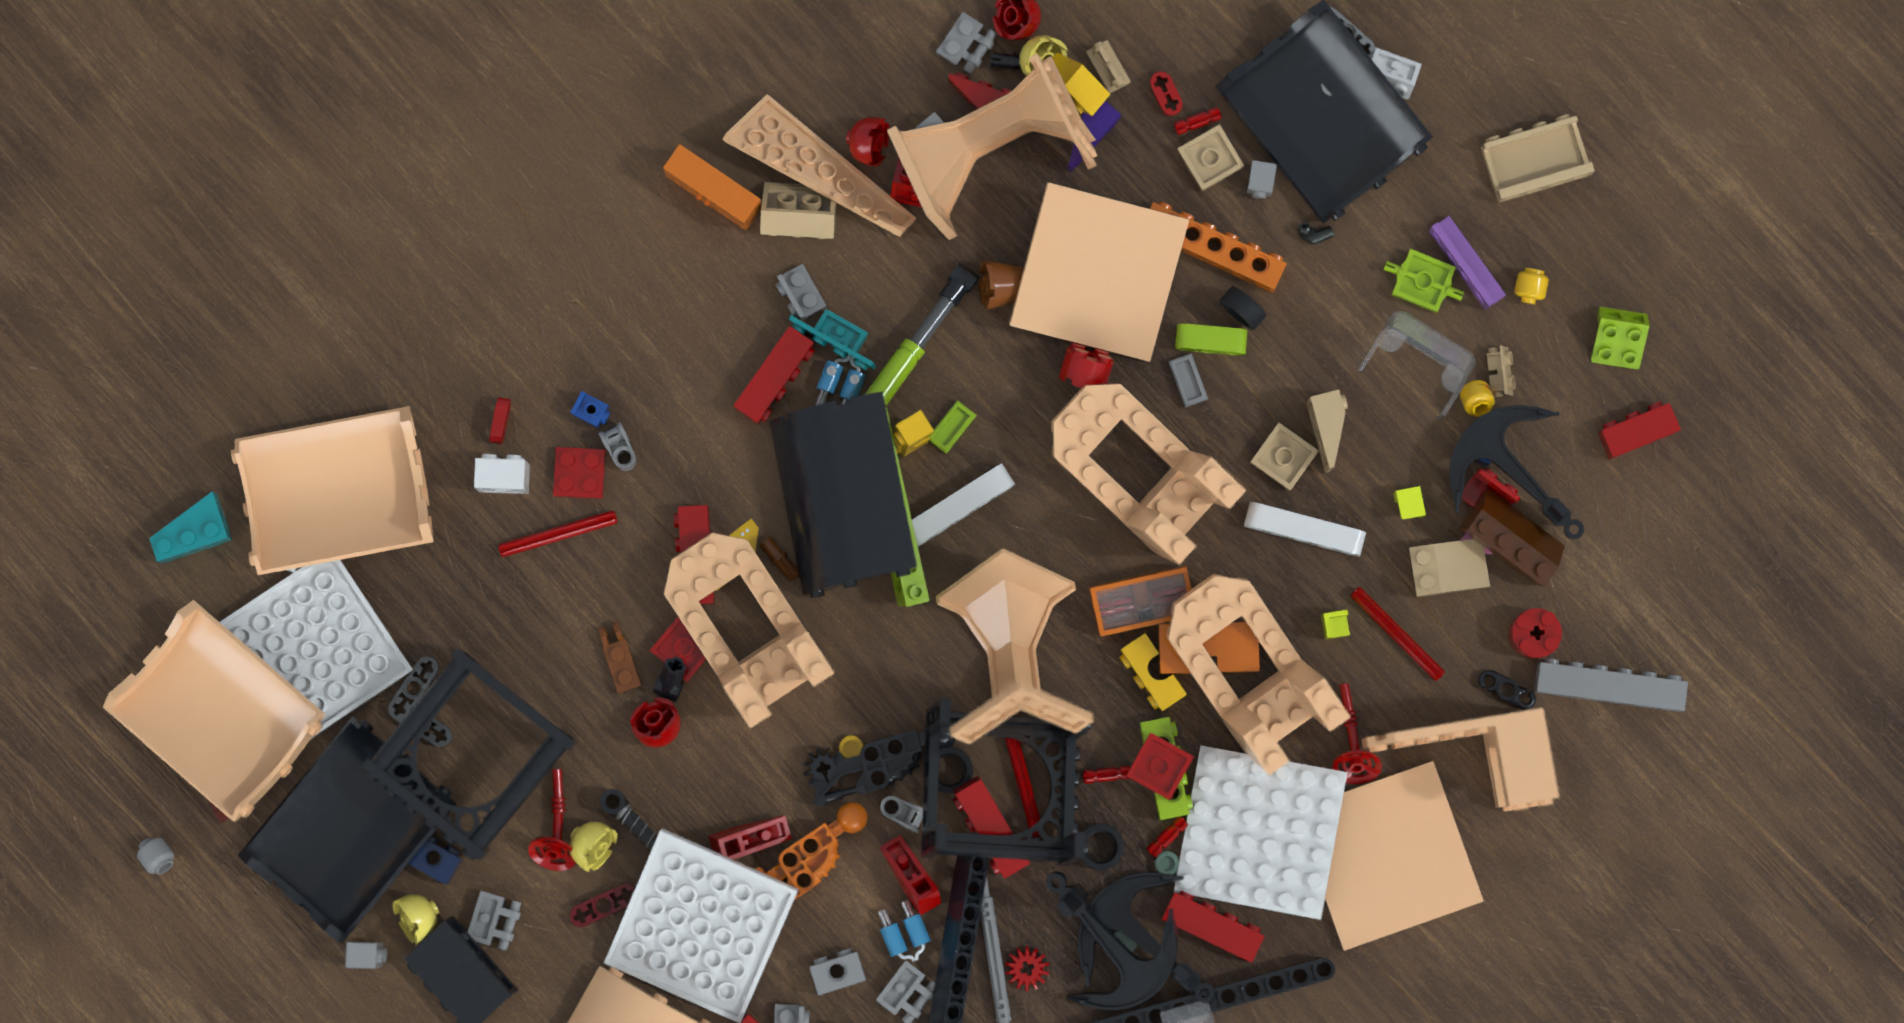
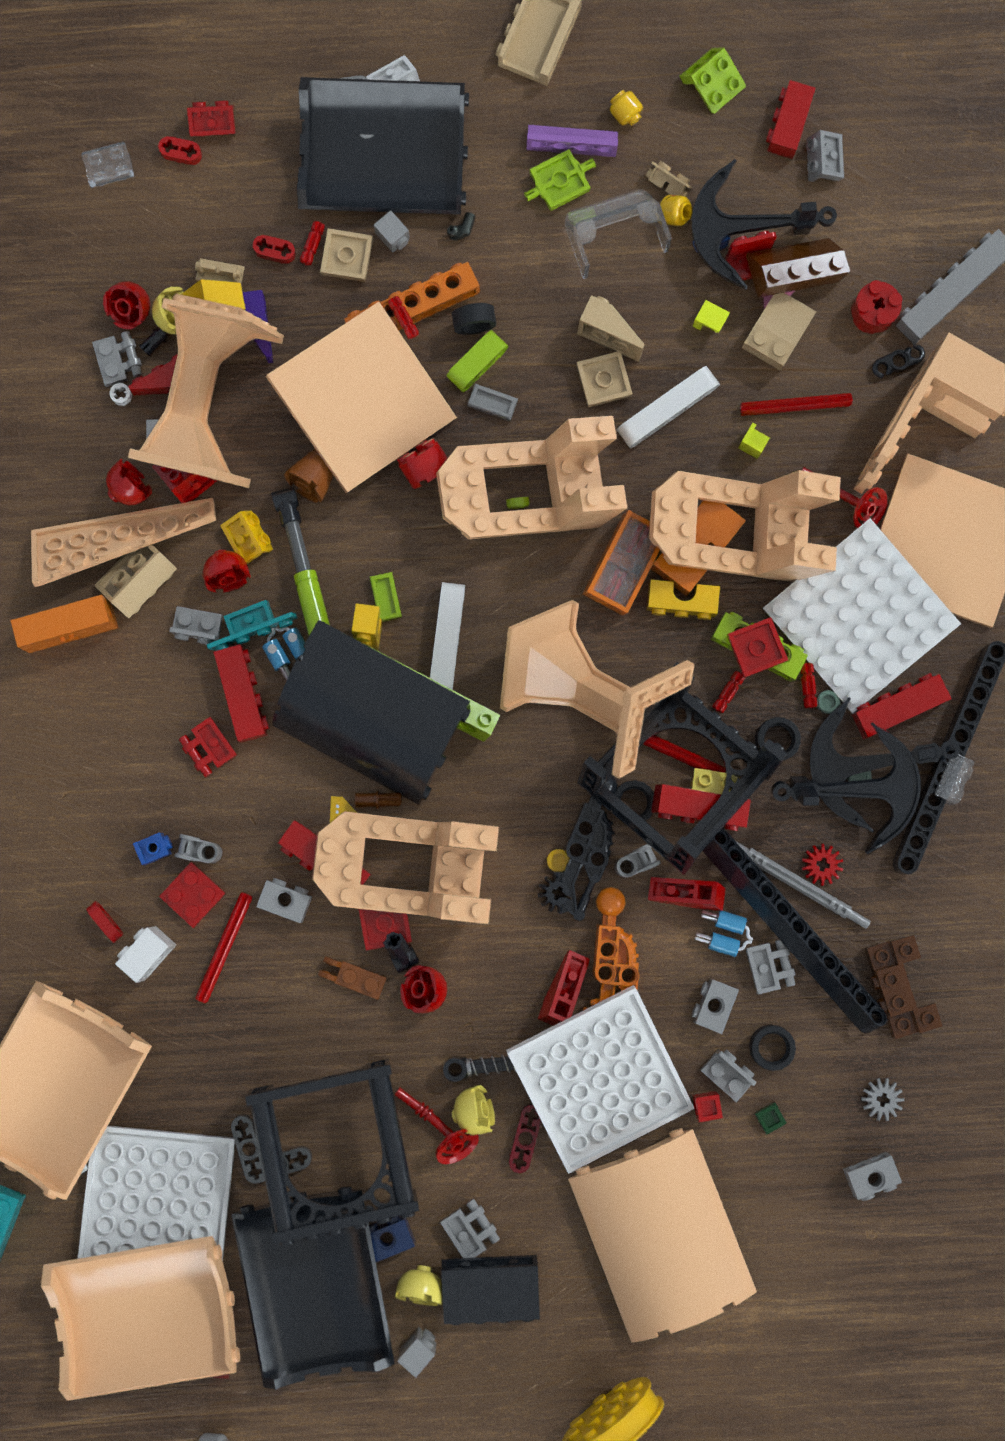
camera: 55 degrees left, 0 degrees up
(625, 540) = (271, 895): none -> light grey brick
(715, 388) = (214, 744): none -> red plate
(864, 279) = (225, 571): none -> red cylinder
(907, 272) = (246, 535): none -> yellow bracket
(945, 66) = (120, 387): none -> white bush
(1018, 818) = (710, 781): none -> light yellow hinge
(1123, 474) = (516, 503): none -> lime tile
(1193, 250) = (403, 317): none -> red axle
(1632, 485) = (825, 156): none -> light grey bracket

